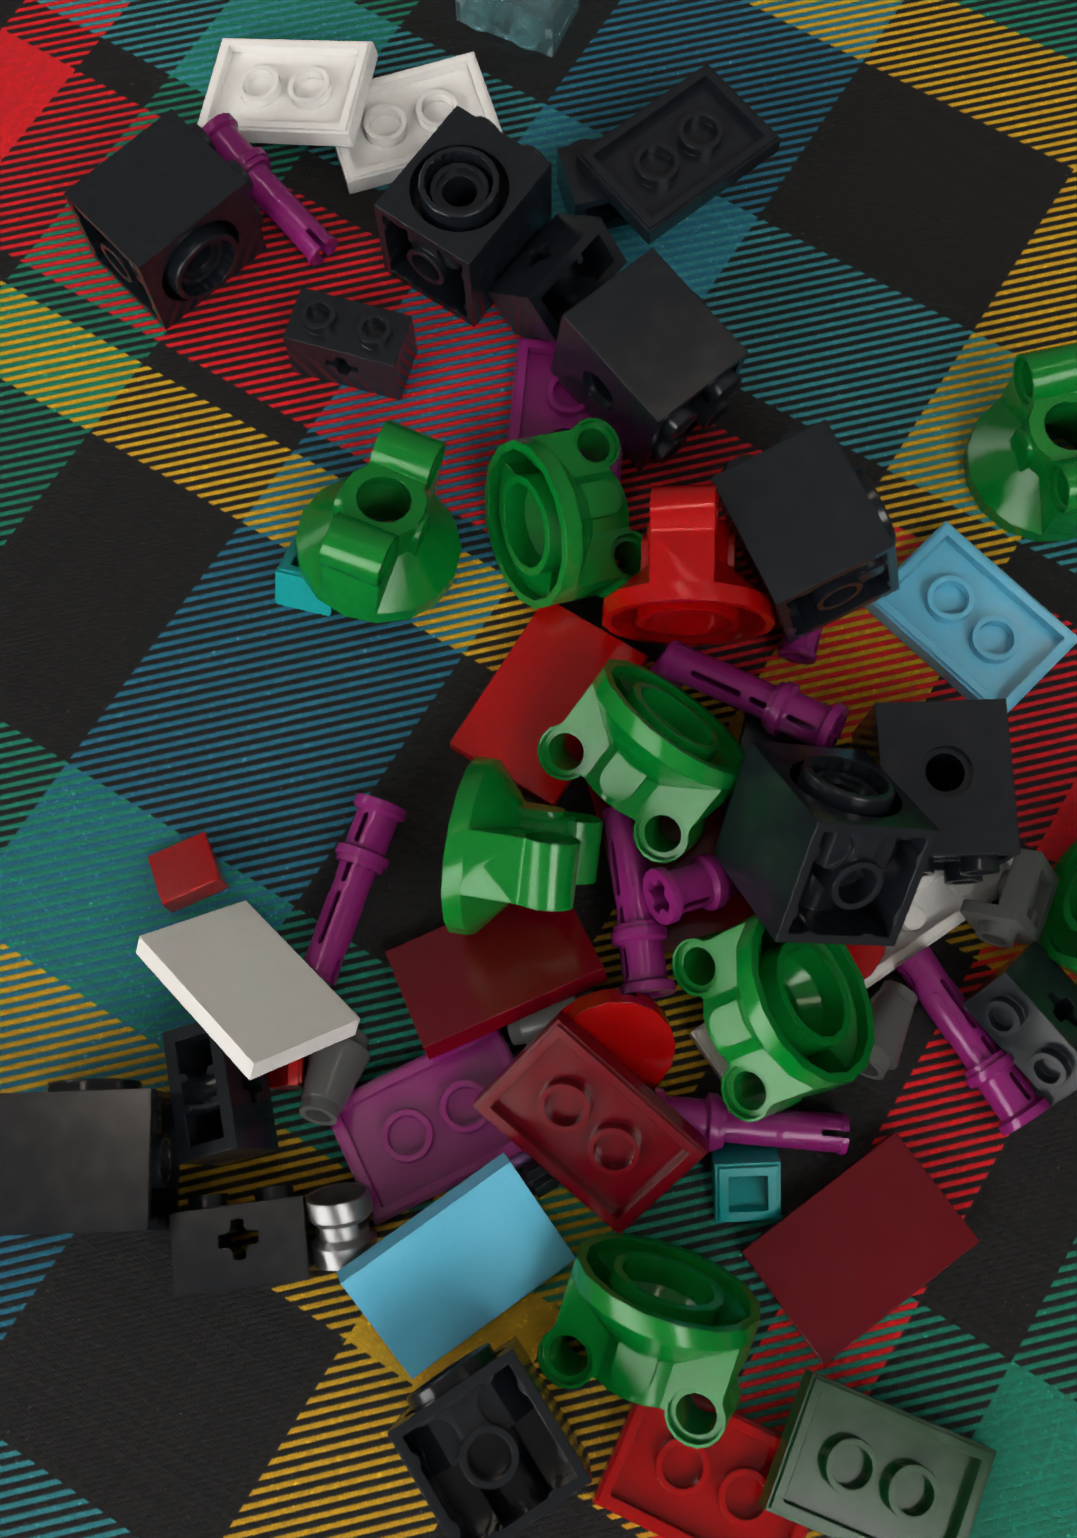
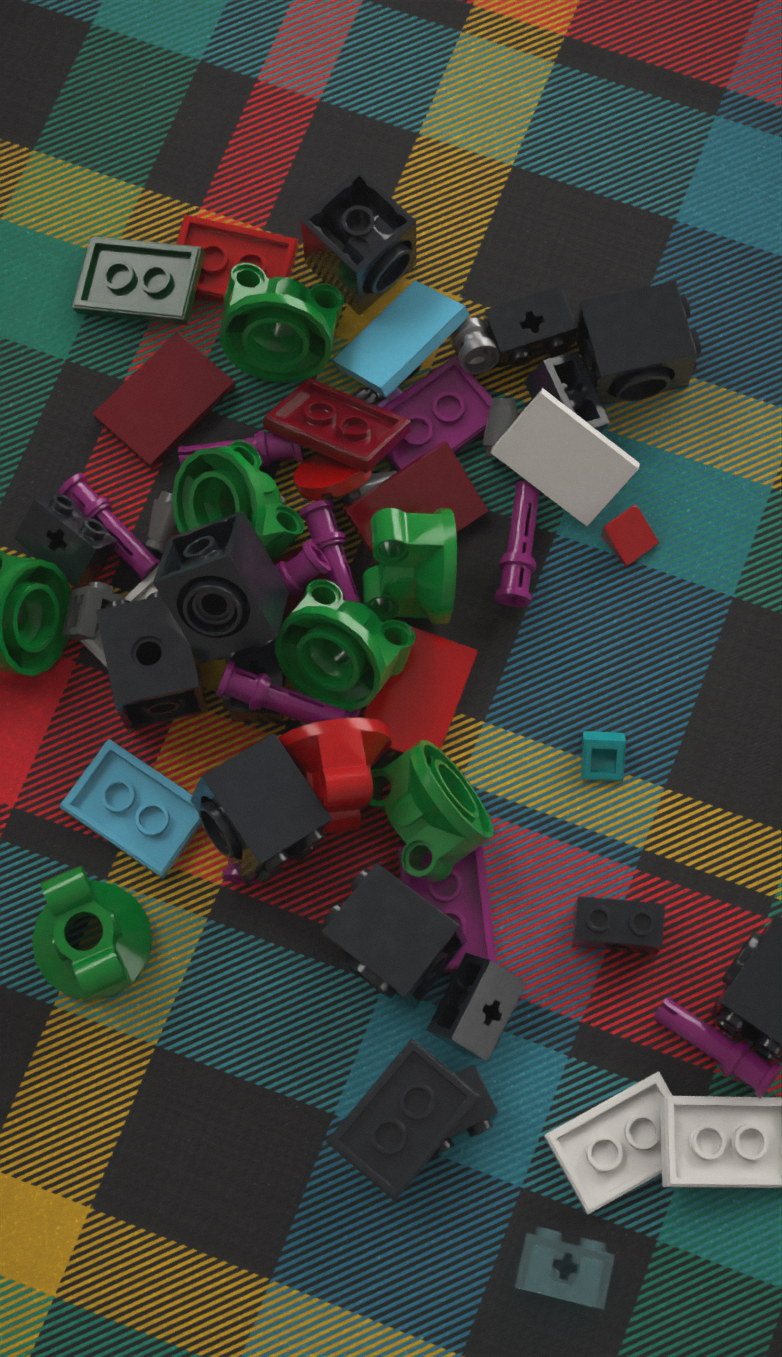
camera: 170 degrees right, 0 degrees up
(374, 566) = (593, 785): green piece -> none
(463, 213) = (550, 1065): black brick -> none
(746, 1183) = (236, 420): teal slope -> none

